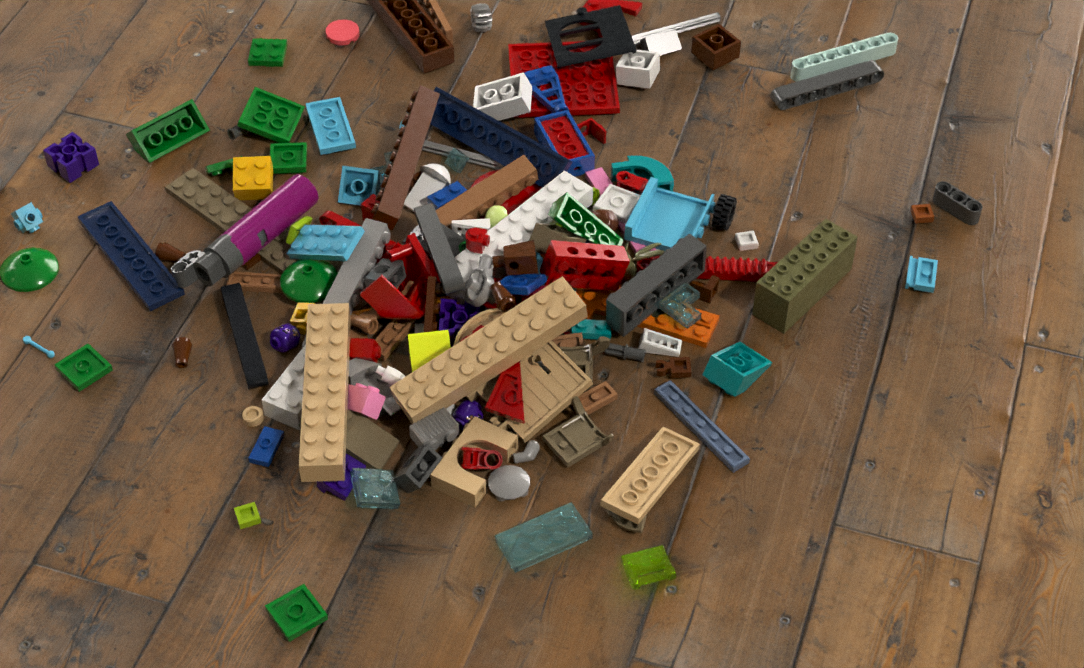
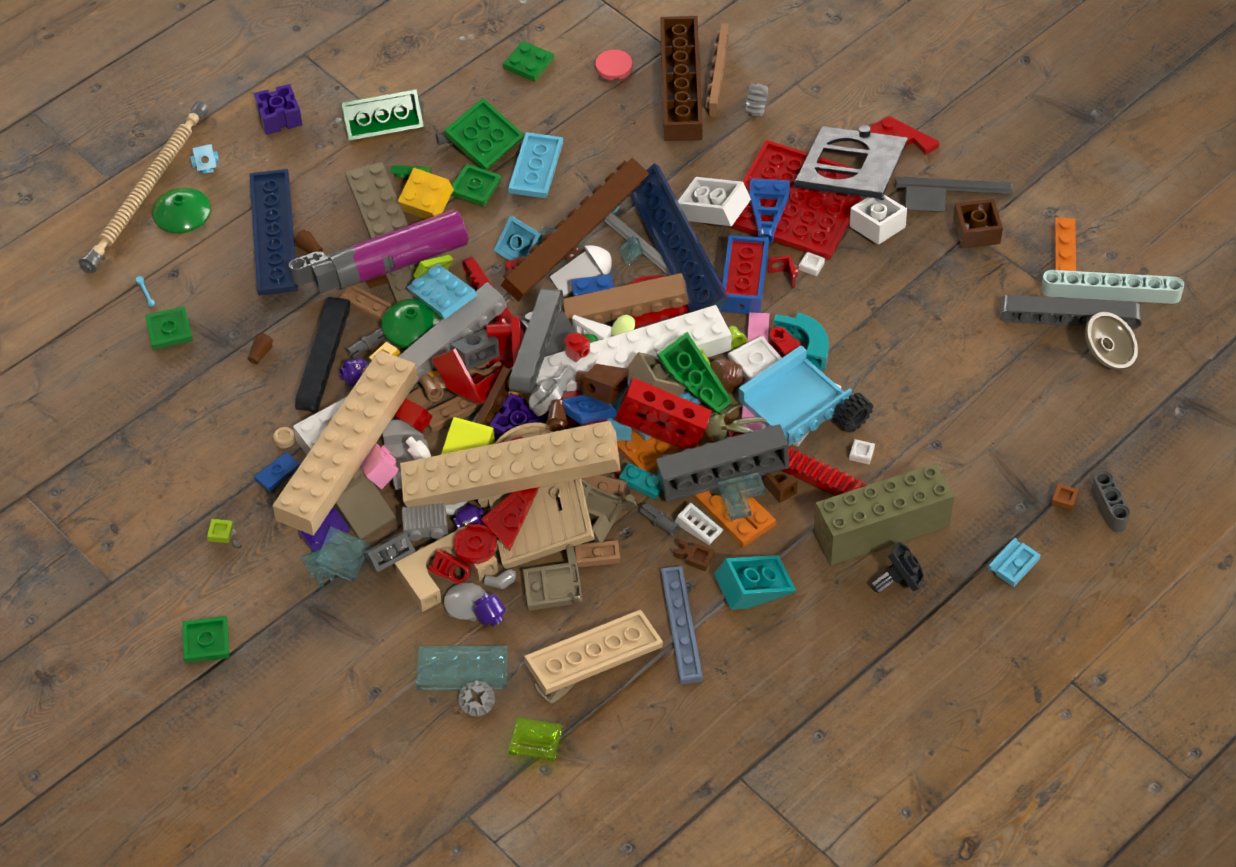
camera: 30 degrees right, 5 degrees up
(276, 313) = (365, 343): none -> dark grey pin
(350, 509) = (314, 571): none -> clear light blue plate
(491, 430) = (475, 544): none -> red tile
(536, 479) = (489, 609): none -> dark purple head
(579, 564) = (474, 708): none -> light grey gear
(607, 120) = (811, 264): none -> white tile
(786, 41) = (1065, 244): none -> orange plate
(844, 313) = (904, 567): none -> black piece
(874, 92) = (1111, 340): none -> dark tan dish

